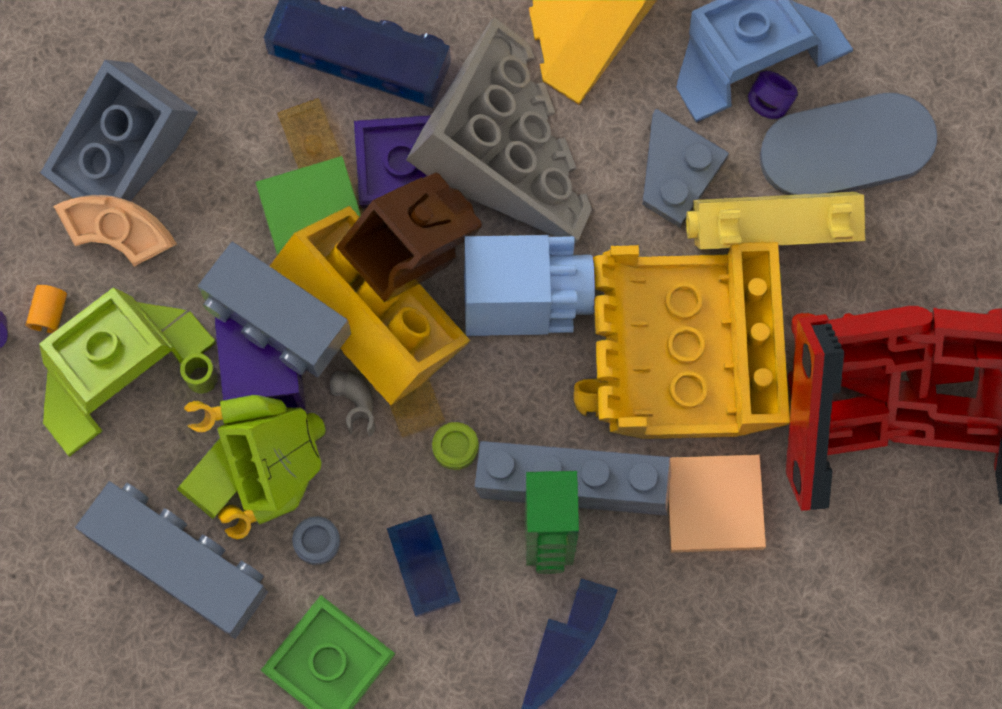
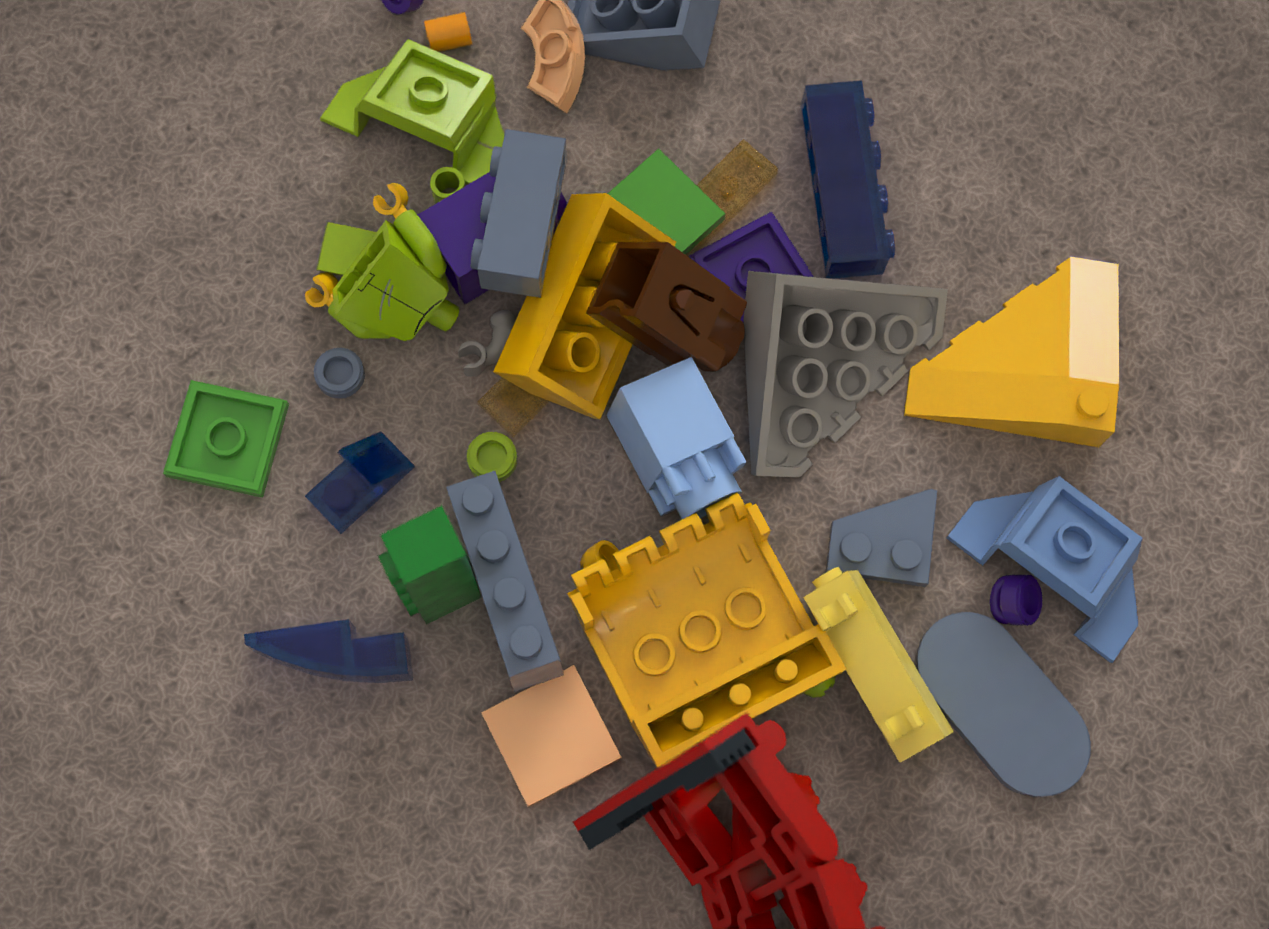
camera: 60 degrees right, 0 degrees up
(173, 559) = (259, 252): sand blue brick -> none

